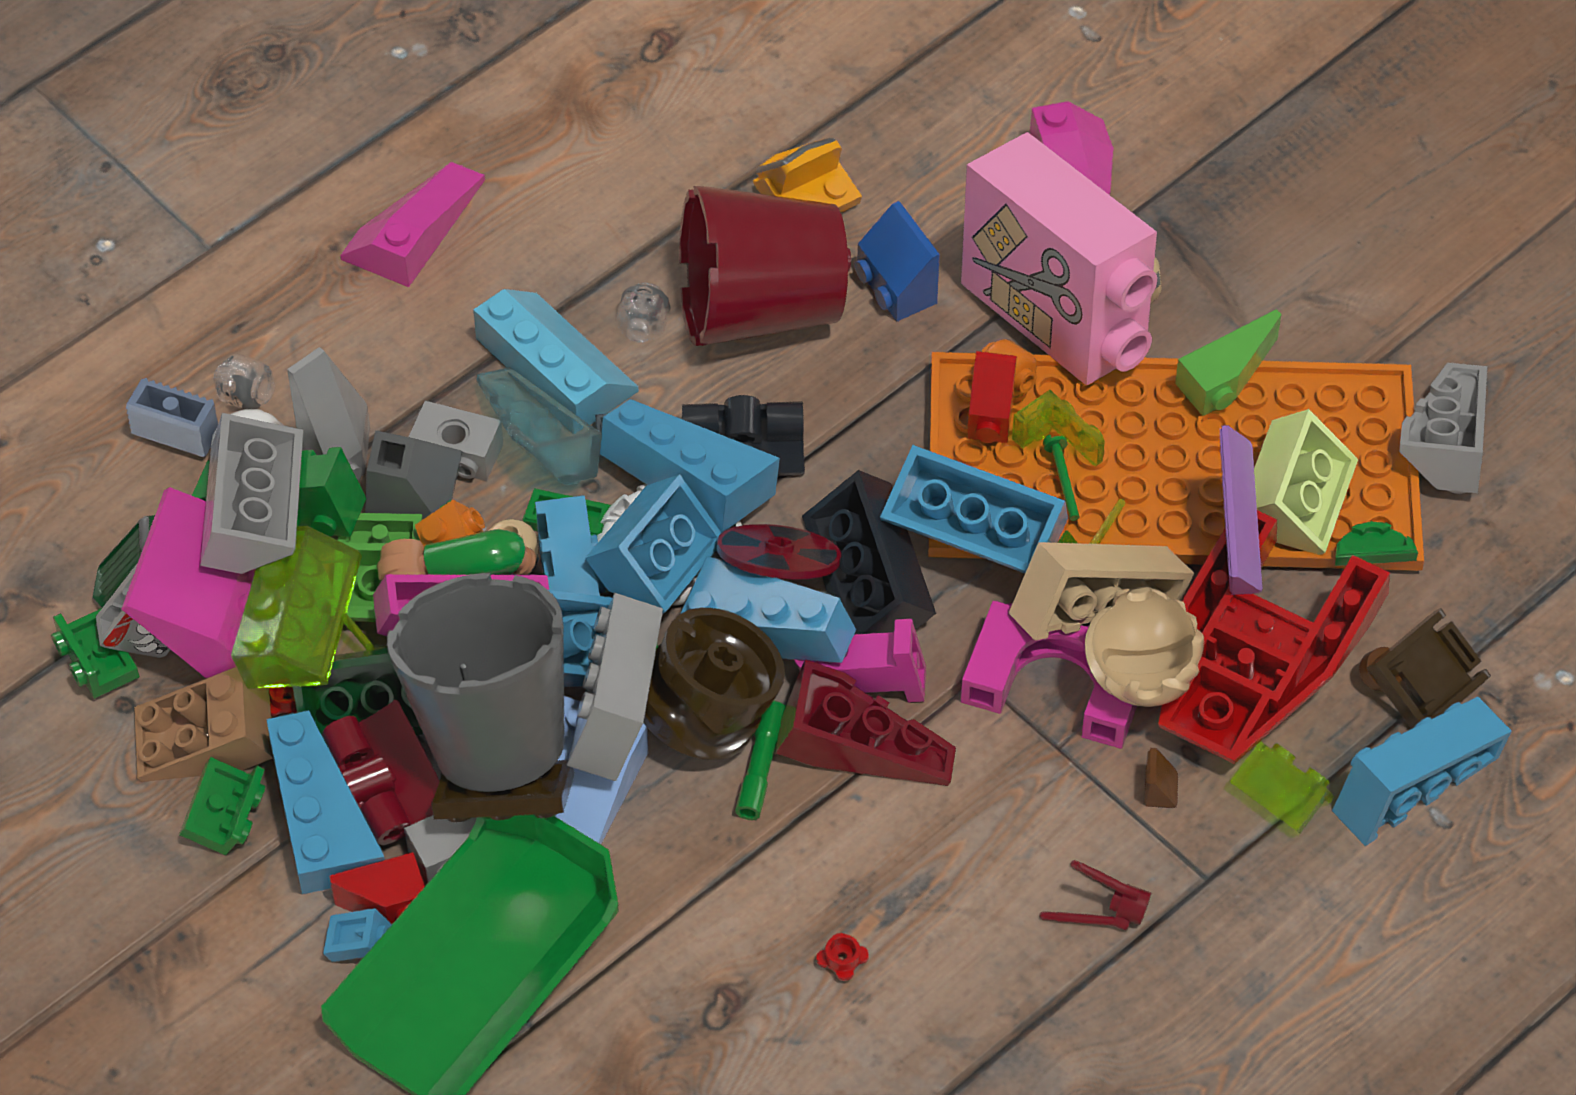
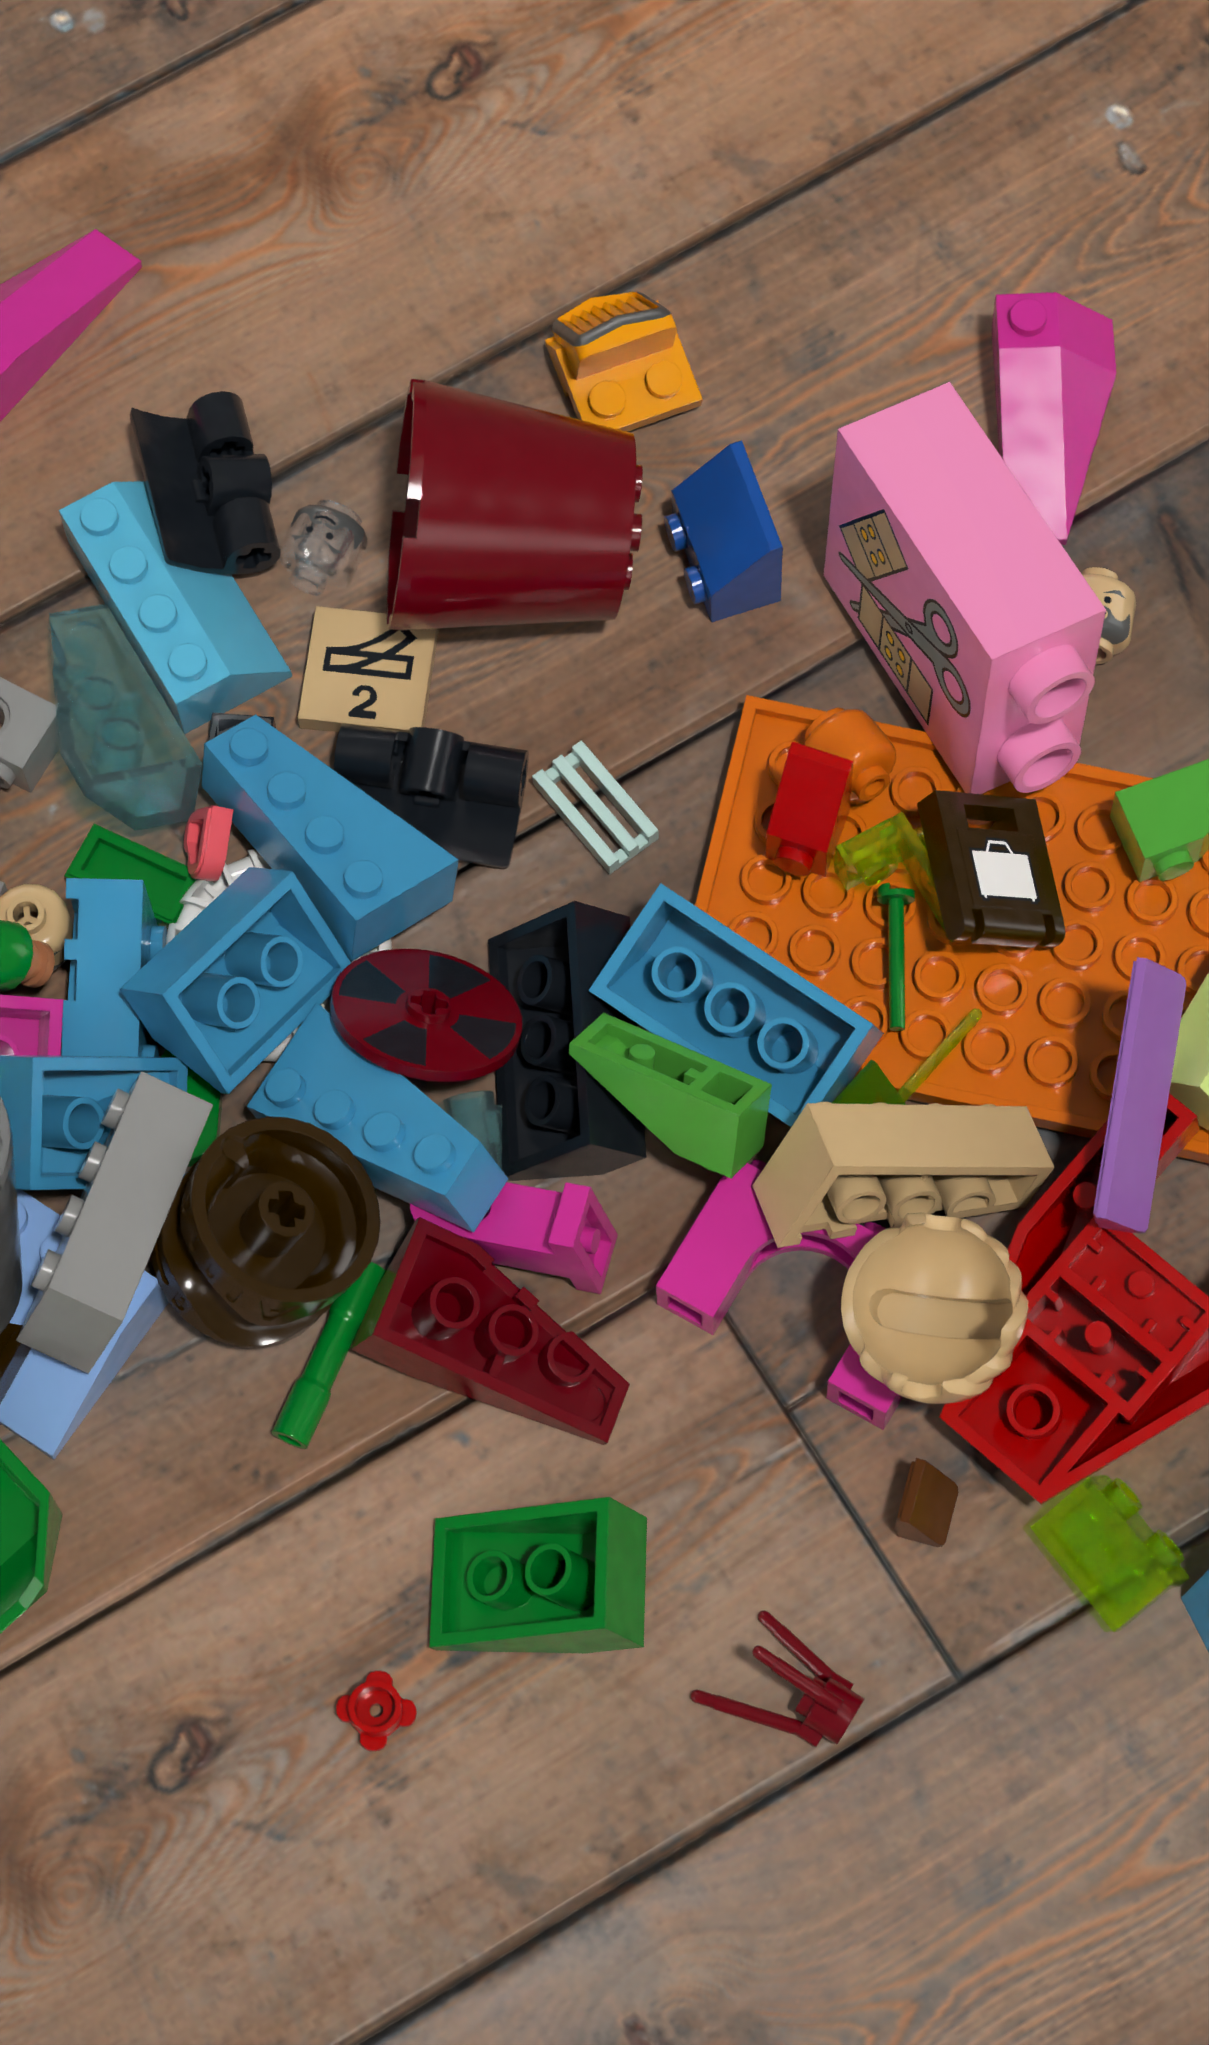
camera: 15 degrees right, 15 degrees up
(564, 288) = (208, 487): none -> black panel
(611, 482) = (207, 841): none -> coral tile
(686, 376) = (365, 672): none -> tan tile
(856, 427) = (564, 769): none -> light aqua tile
(929, 861) = (540, 1579): none -> green slope
(957, 566) = (678, 1094): none -> bright green slope
(1112, 414) = (993, 879): none -> dark brown container

